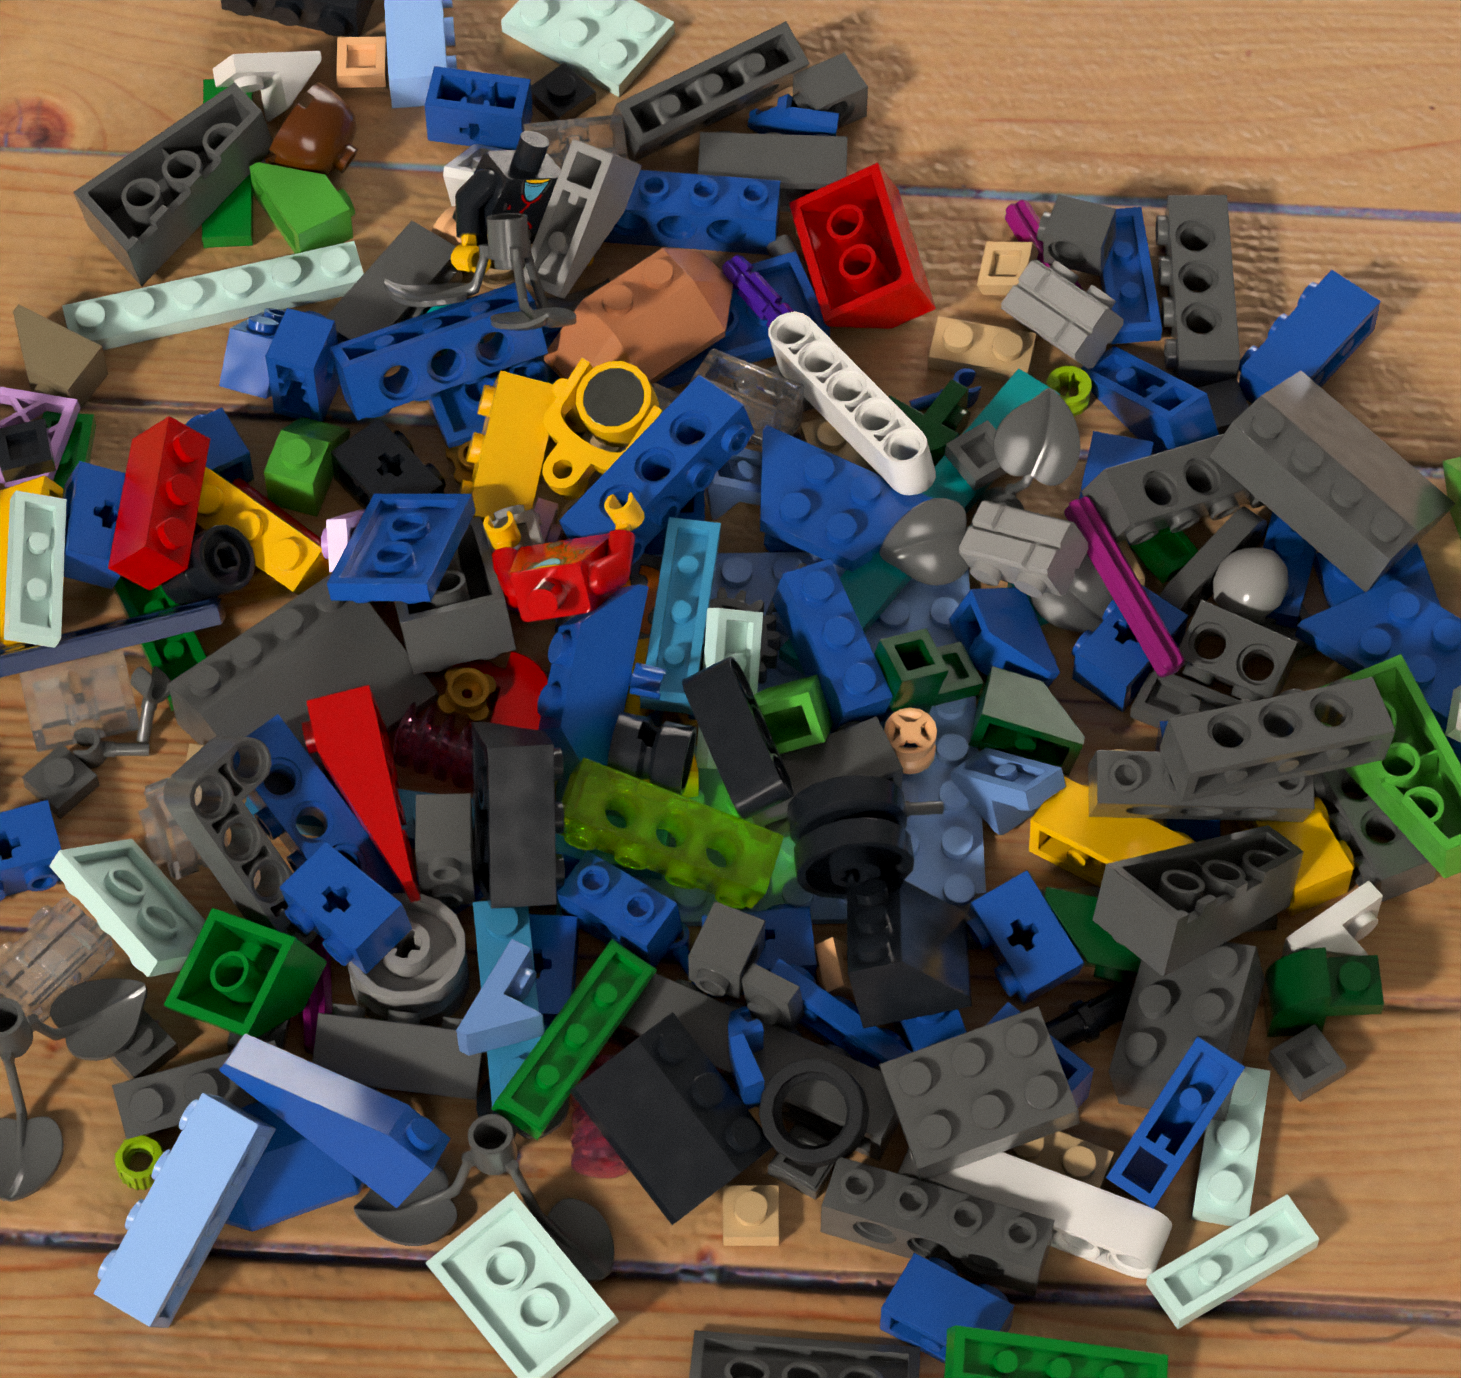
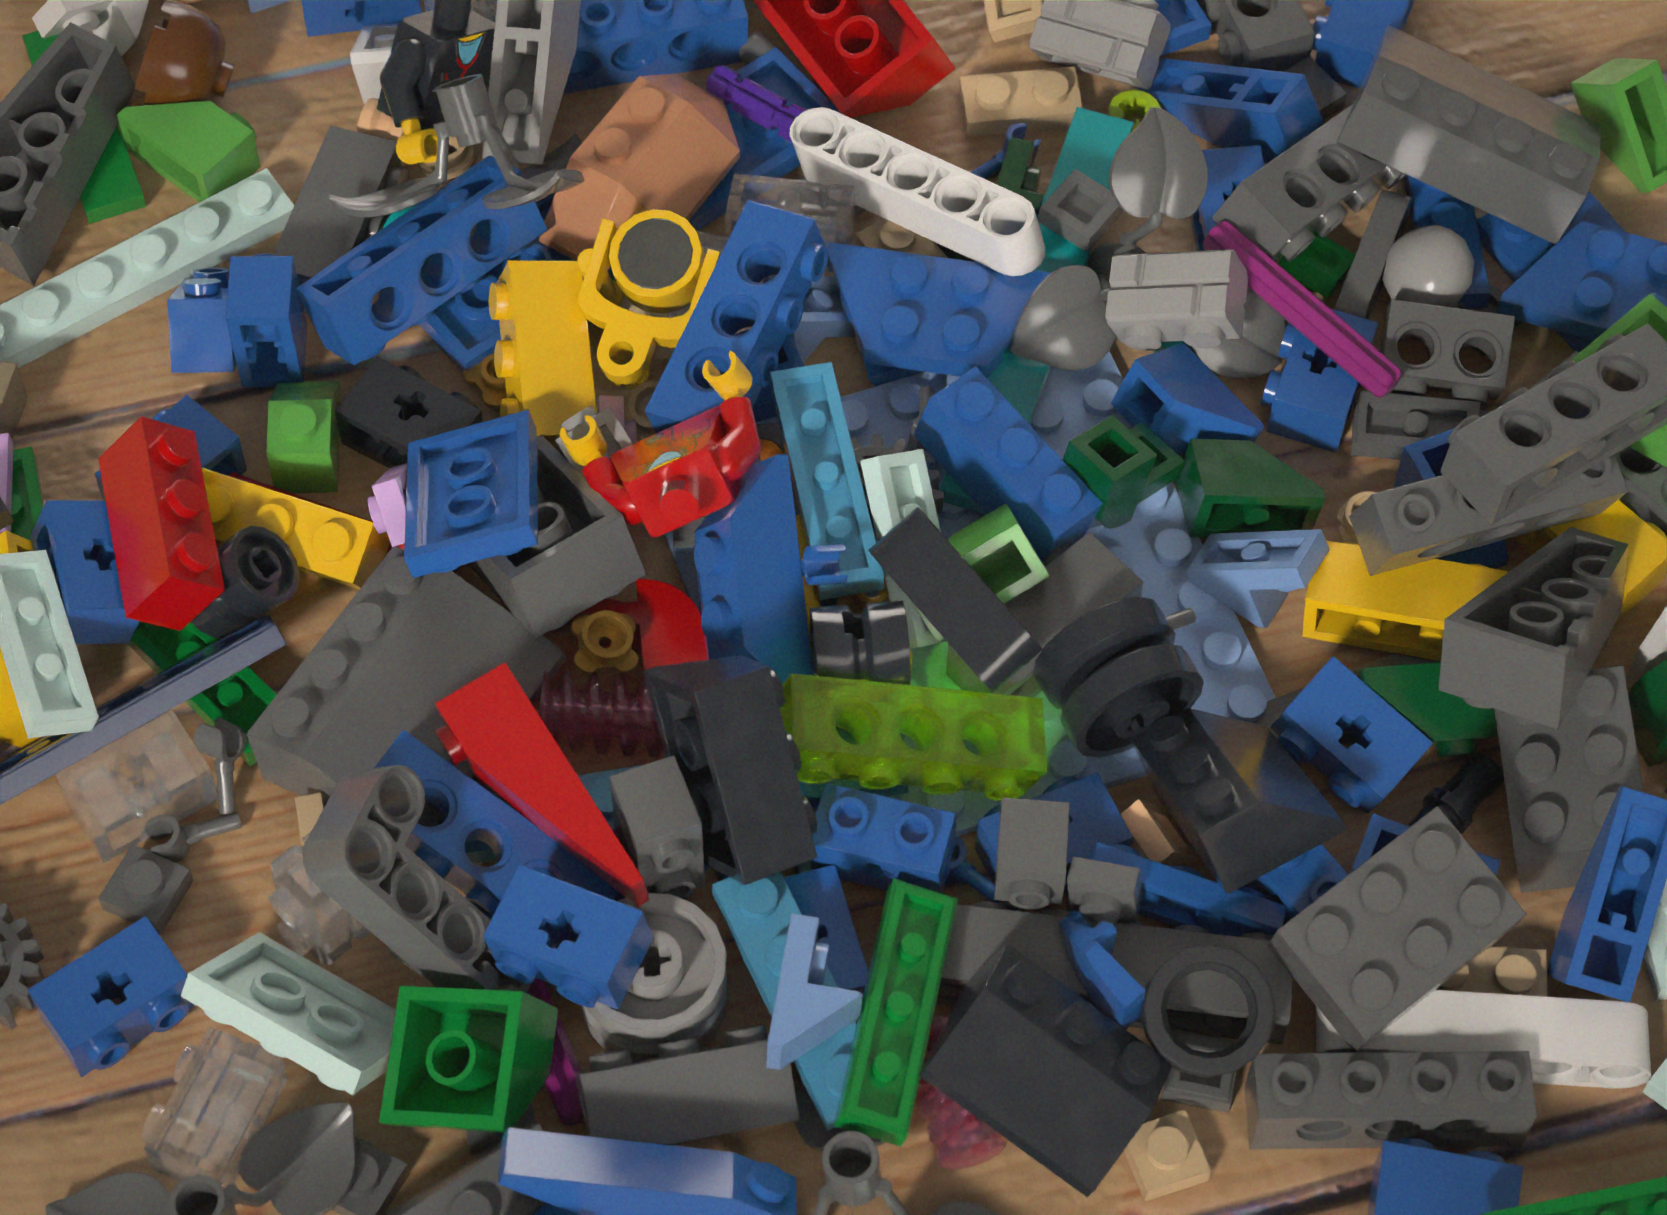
camera: 20 degrees left, 0 degrees up
(911, 727) = (1131, 533): light nougat wheel -> none

